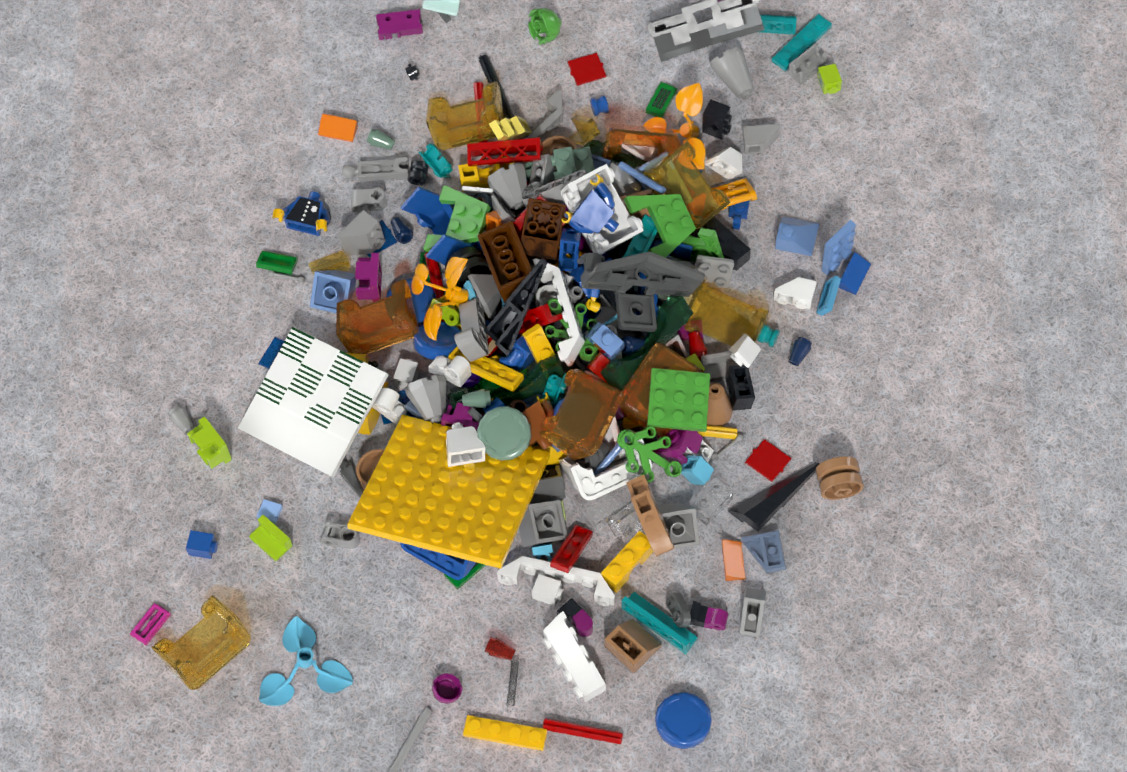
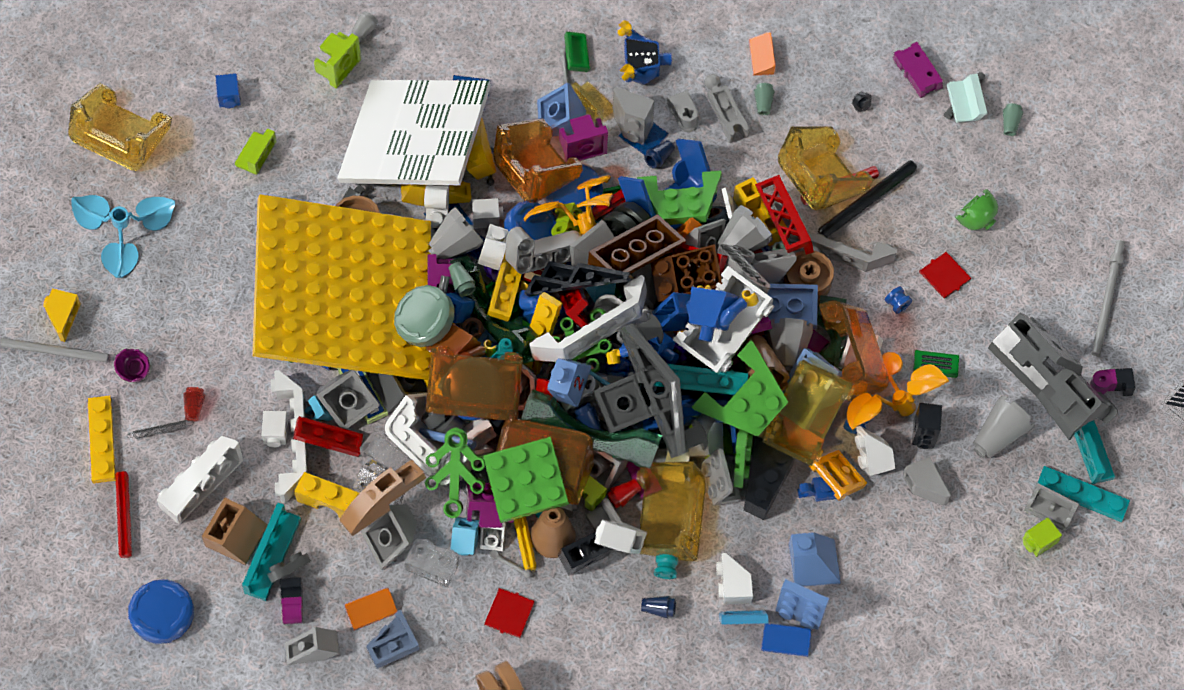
camera: 65 degrees right, 0 degrees up
(155, 629) = (131, 81): dark pink tile -> none
(270, 510) = (286, 140): light blue tile -> none
(371, 736) = (61, 311): none -> yellow slope
(417, 173) = (736, 147): black wheel -> none
(441, 167) = (756, 159): teal hinge -> none
(463, 446) = (397, 279): white torso -> none
(510, 128) = (817, 212): light yellow slope -> none
(570, 161) = (791, 287): sand green plate -> none
(578, 617) = (253, 467): leg -> none
(585, 128) = (853, 295): clear yellow panel -> none
(641, 177) = (796, 356): medium blue bar -> none
(763, 506) = (445, 620): black wedge -> none

